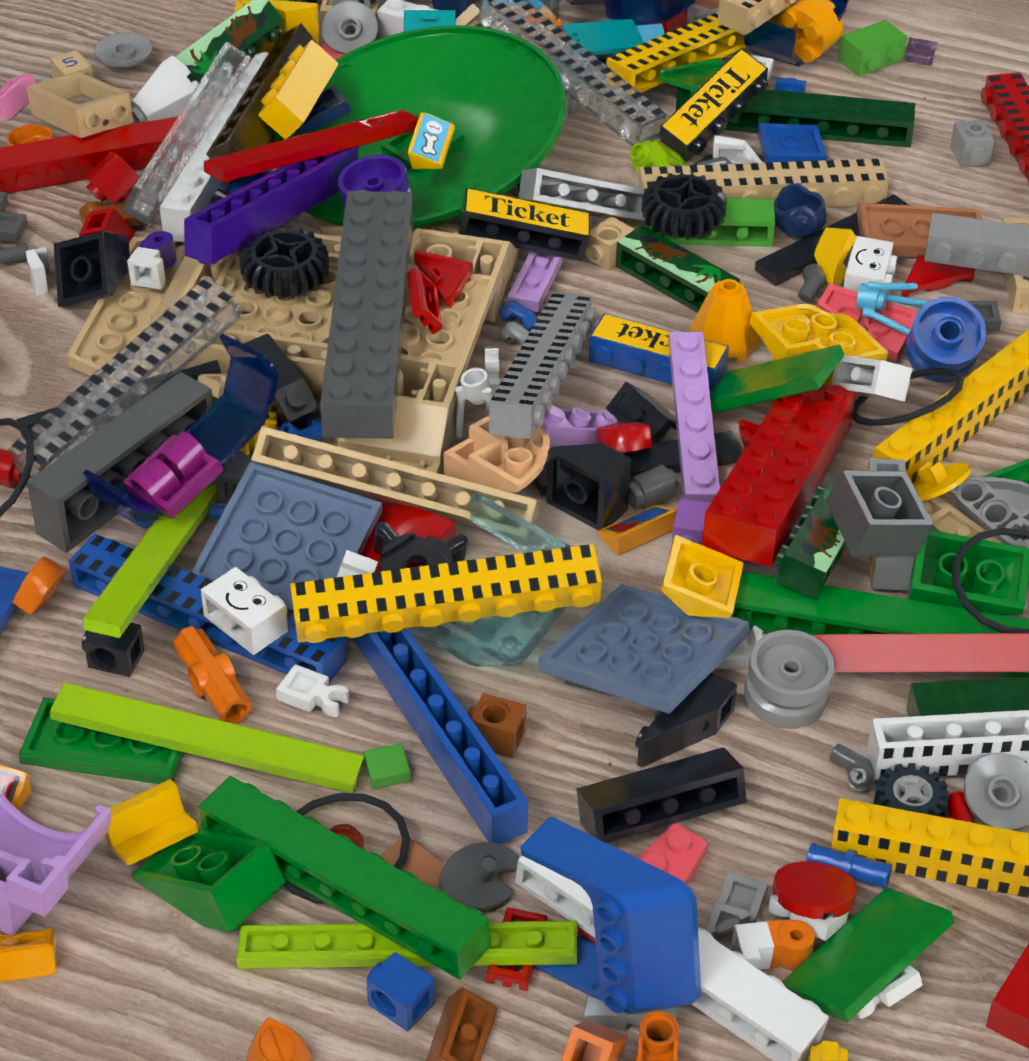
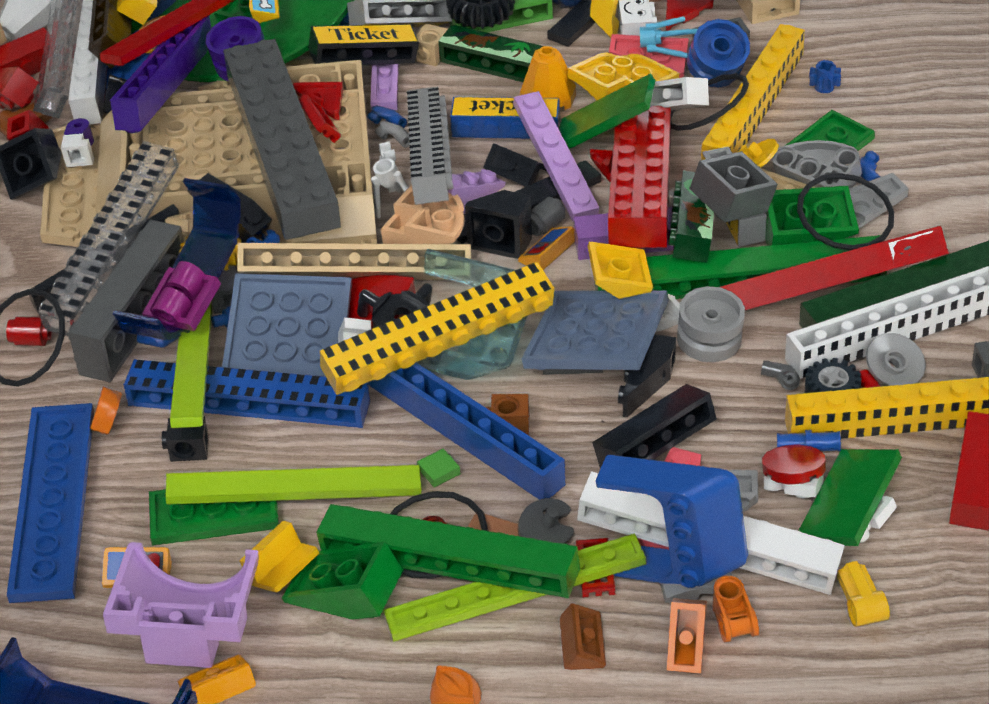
camera: 15 degrees left, 0 degrees up
(212, 675) = (274, 439): orange piece -> none
(245, 610) = (285, 382): white brick -> none
(284, 263) = (194, 117): black gear -> none
(308, 688) = (354, 429): white plate -> none
(400, 991) = (525, 619): blue brick -> none
(625, 436) = (514, 181): red hat -> none
(772, 945) = (782, 508): leg -> none
(813, 278) = (597, 34): dark grey arm -> none

